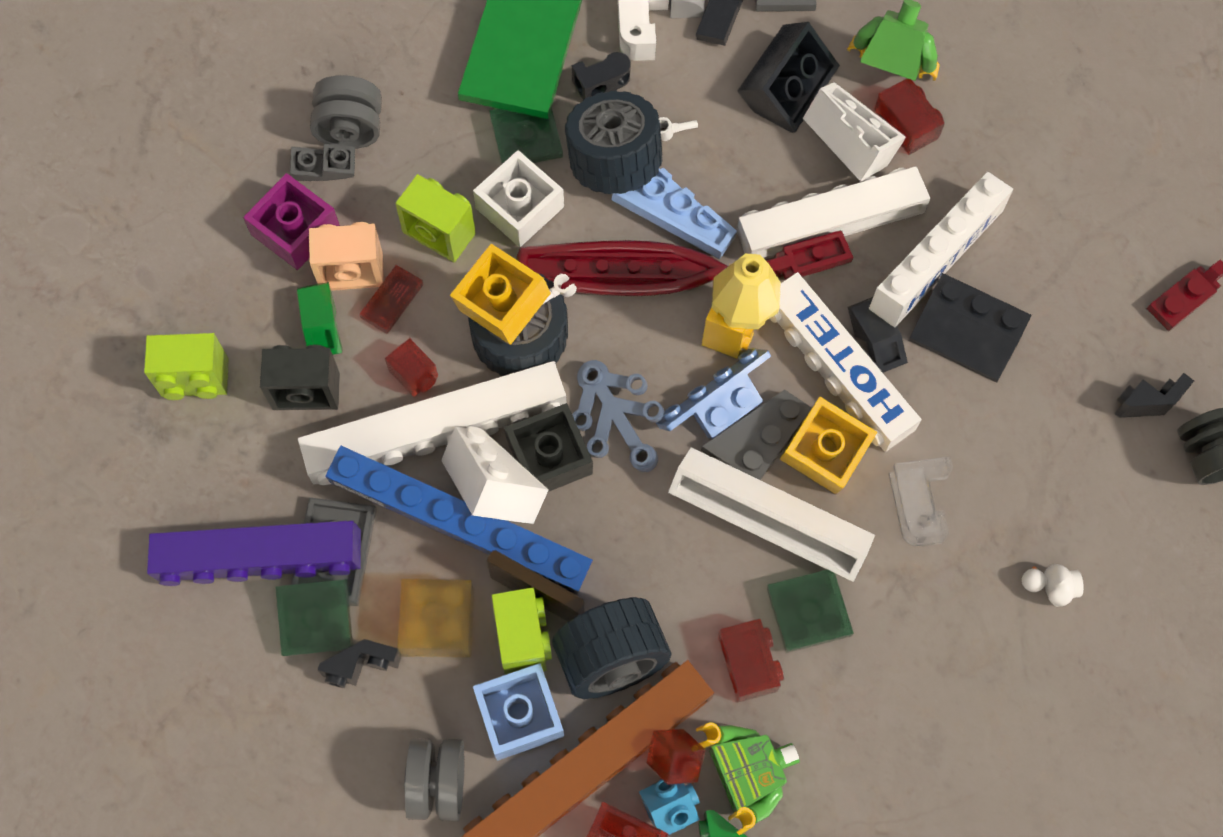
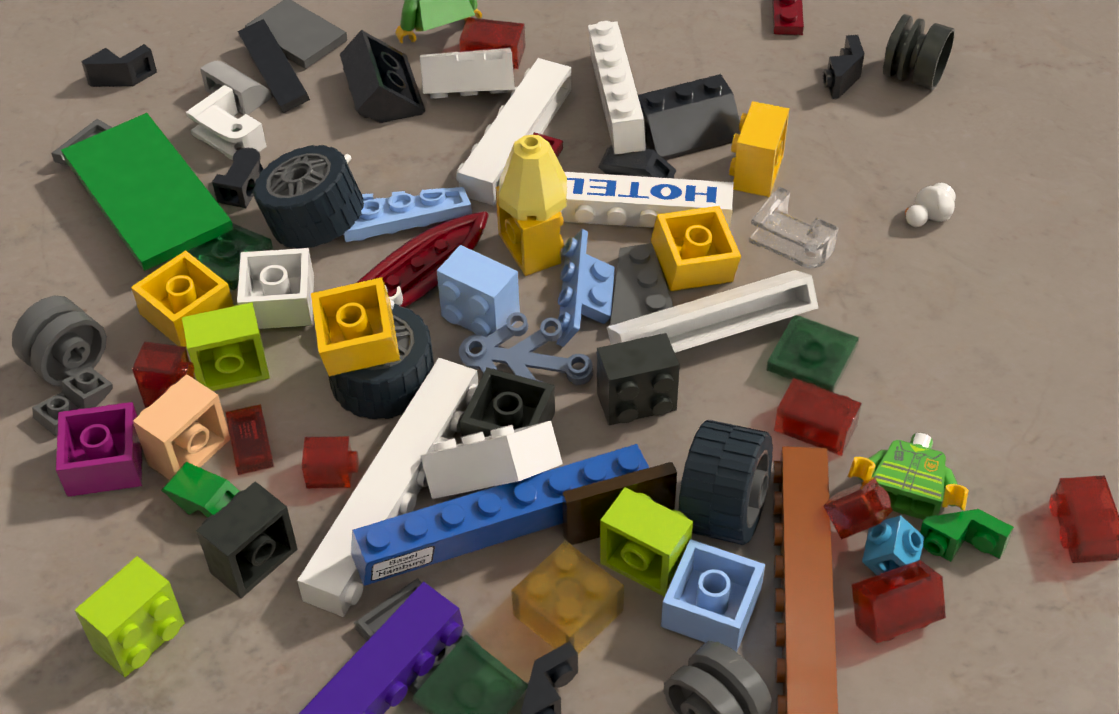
camera: 45 degrees left, 20 degrees down
(376, 206) = (159, 368): none -> clear red brick
(454, 148) = (177, 291): none -> yellow brick
(634, 334) = (477, 291): none -> light blue brick
(656, 510) = (637, 379): none -> pearl dark grey brick
(979, 409) = (759, 148): none -> yellow brick

